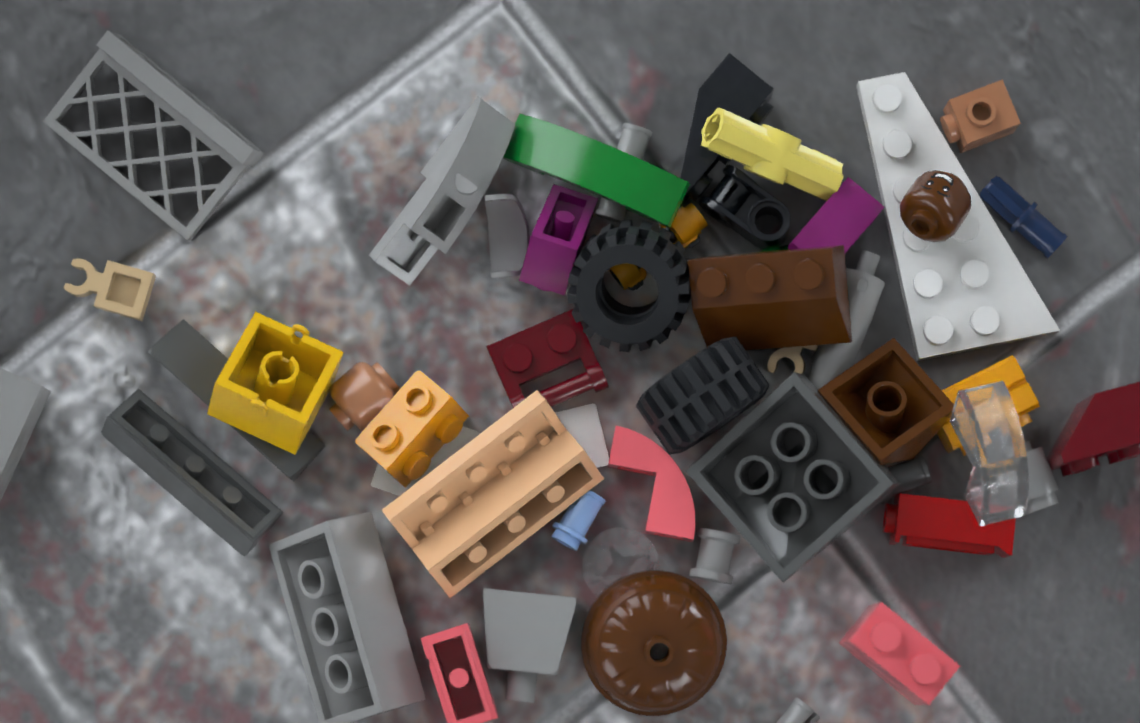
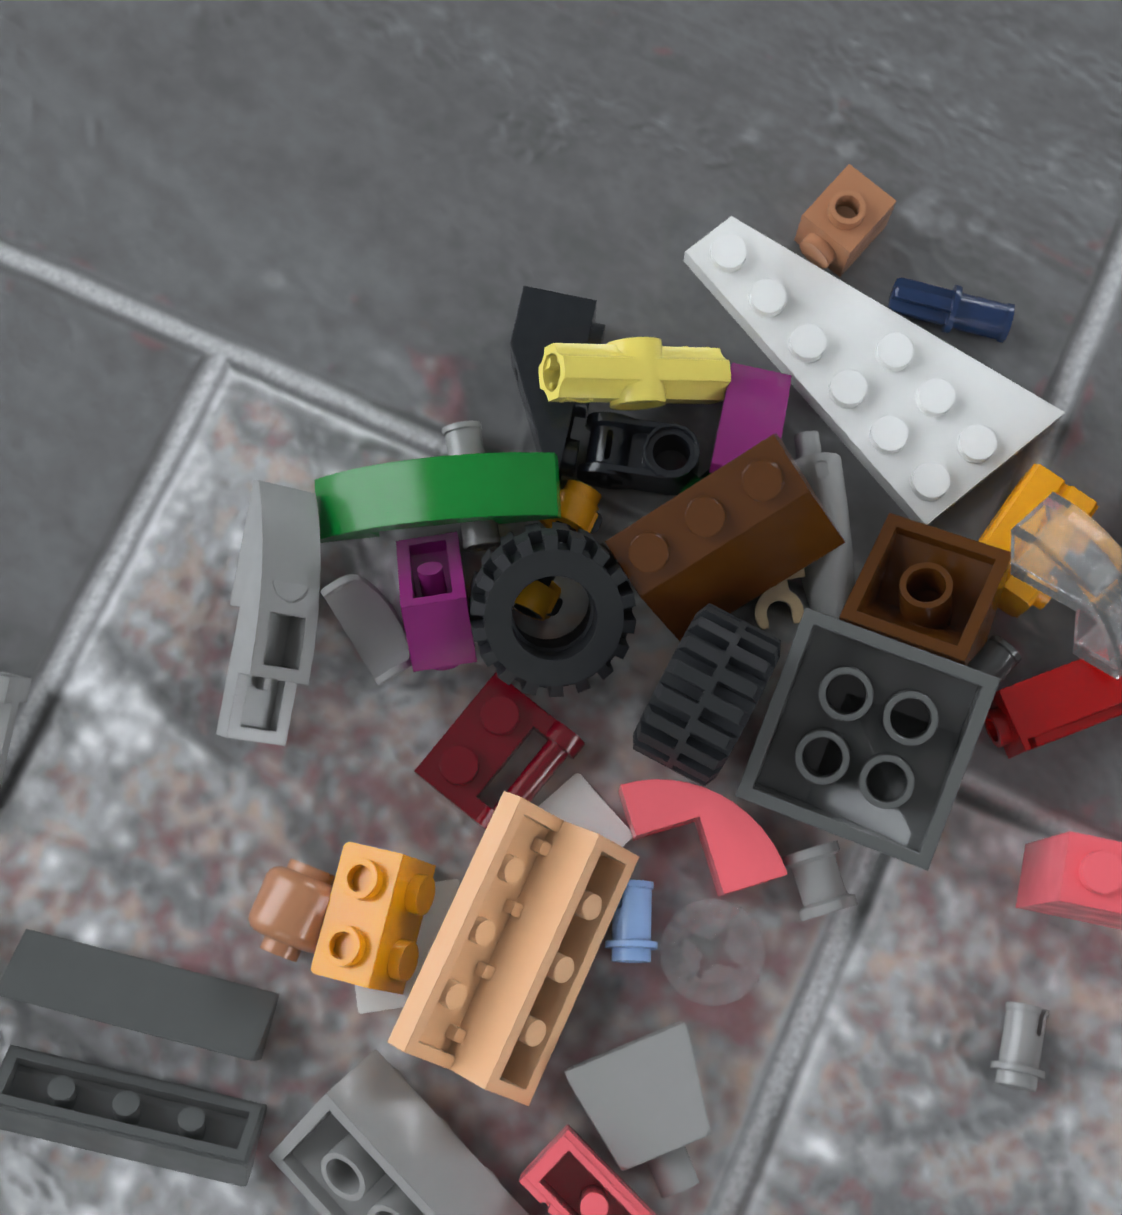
camera: 30 degrees left, 5 degrees down
(274, 382) = (173, 951): yellow brick -> none
(647, 611) = (766, 1018): reddish brown hat -> none
(935, 206) = (854, 338): reddish brown head -> none

